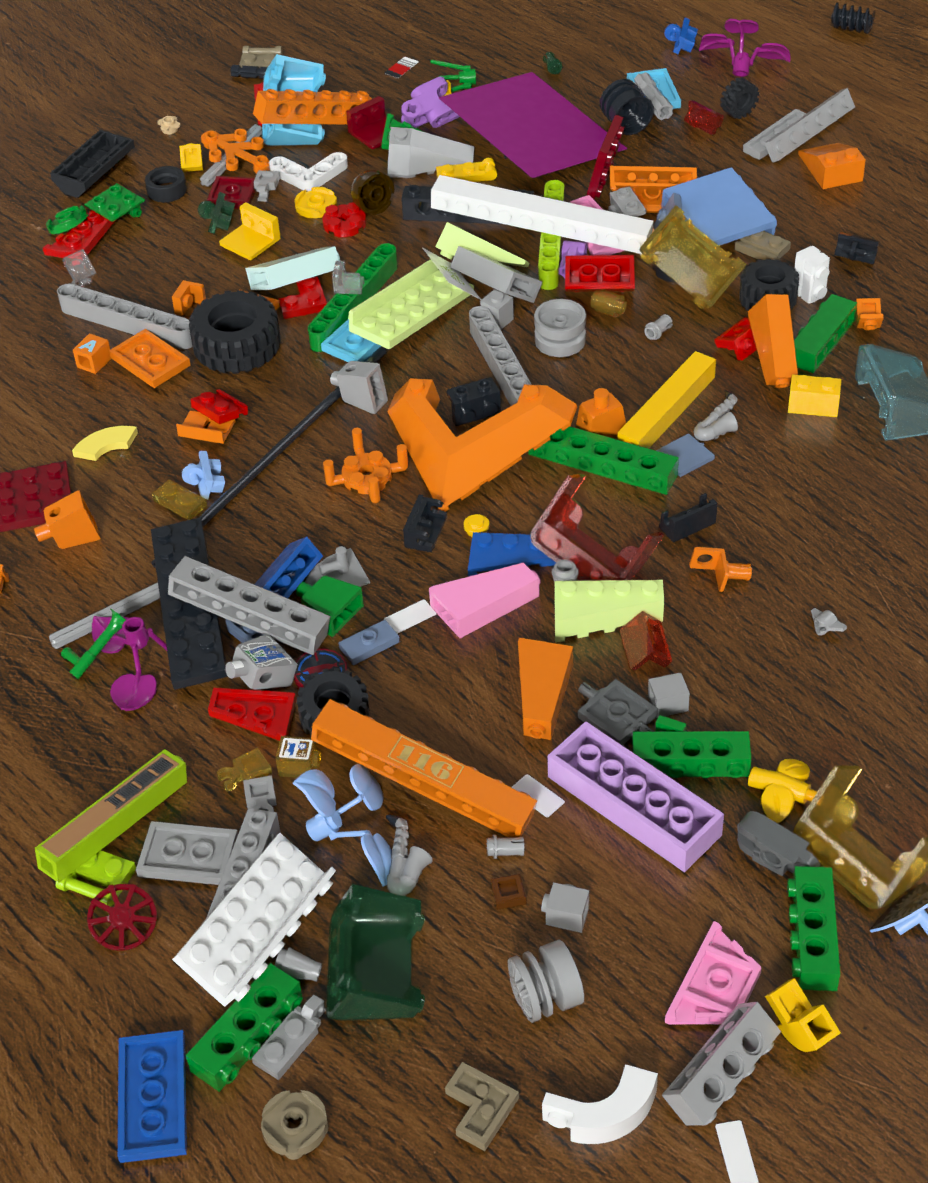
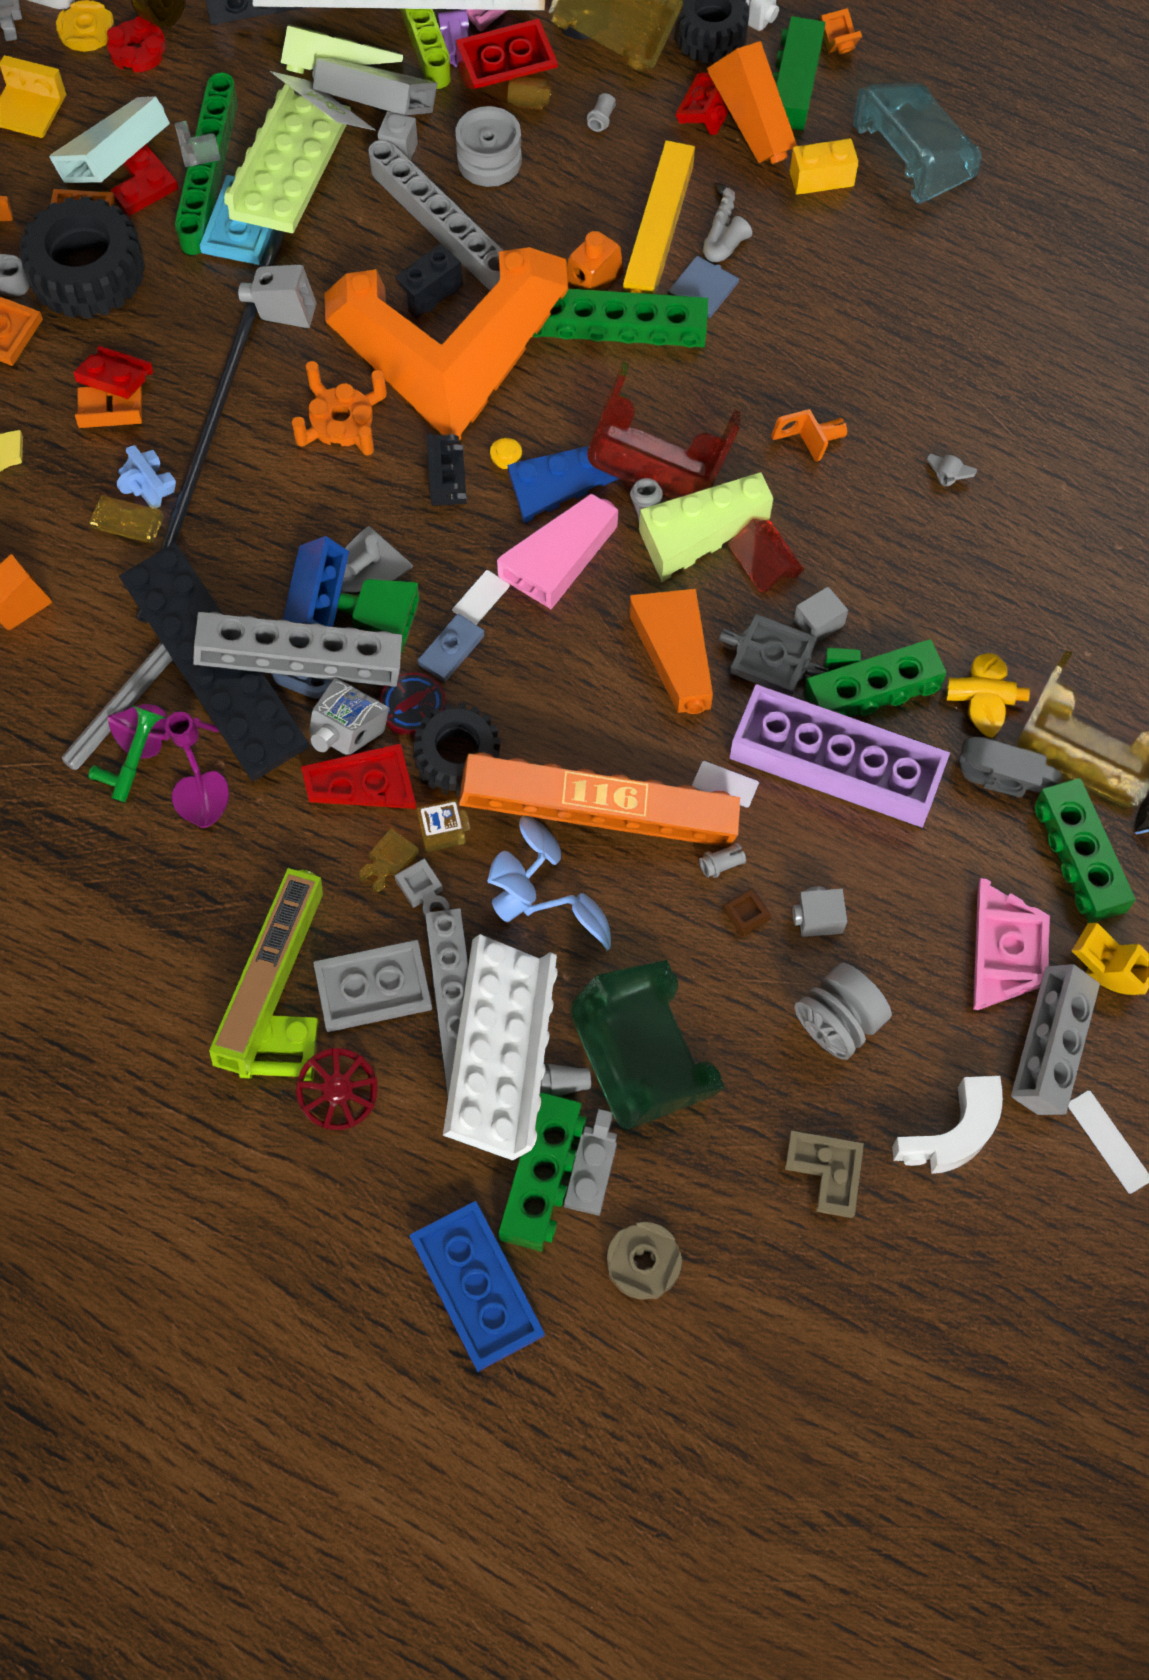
camera: 25 degrees left, 20 degrees up
(403, 870) = (624, 926): light grey piece -> none
(690, 520) = (747, 376): black hinge -> none

